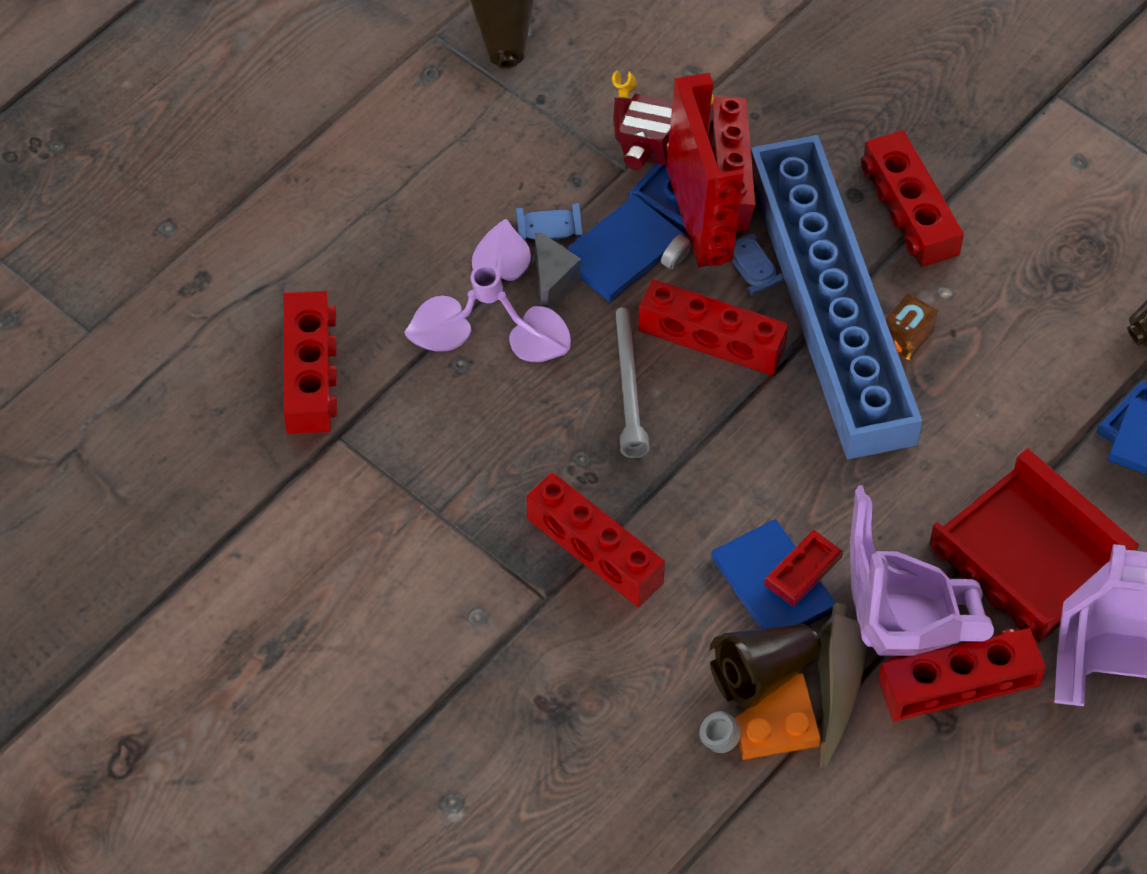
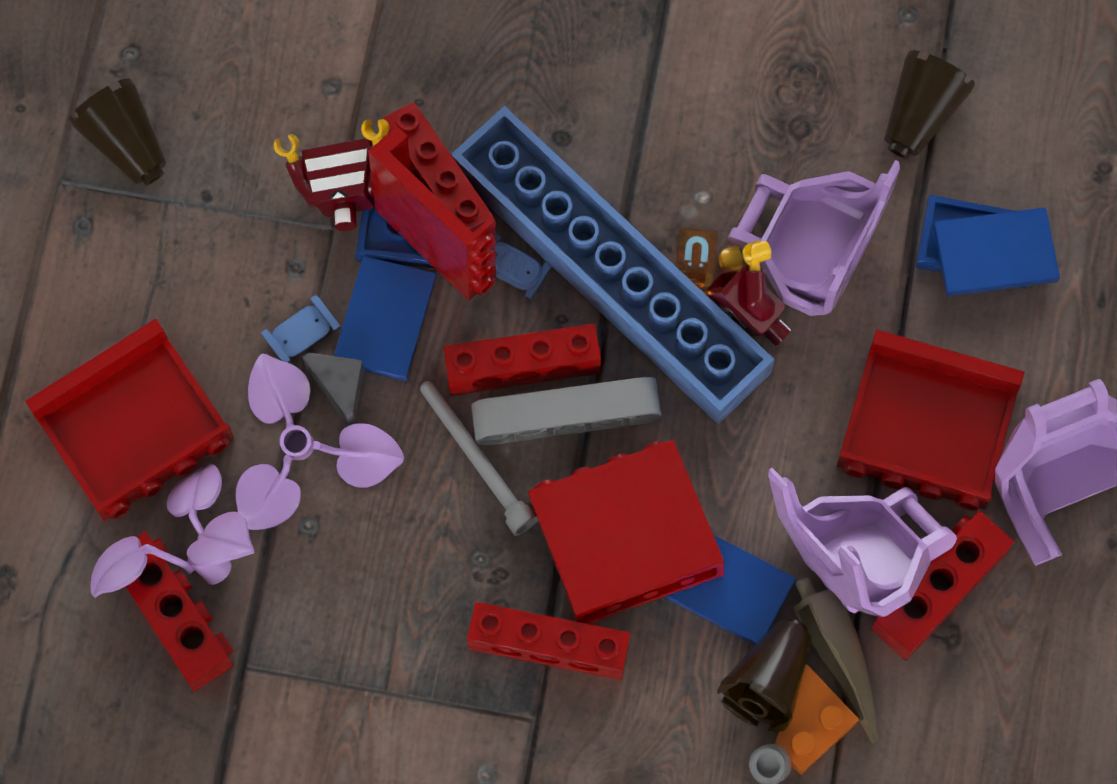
camera: 30 degrees left, 15 degrees up
(371, 216) = (130, 421): none -> red panel
(381, 304) = (209, 556): none -> lavender plant
(676, 252) = (440, 297): light grey tile -> none
(712, 492) = (626, 532): none -> red panel
(725, 383) = (566, 411): none -> light grey beam
(803, 568) = (751, 563): red plate -> none
(912, 198) = (583, 78): red brick -> none
(929, 366) = (743, 292): none -> dark red torso
(1024, 353) = (816, 233): none -> lavender piece

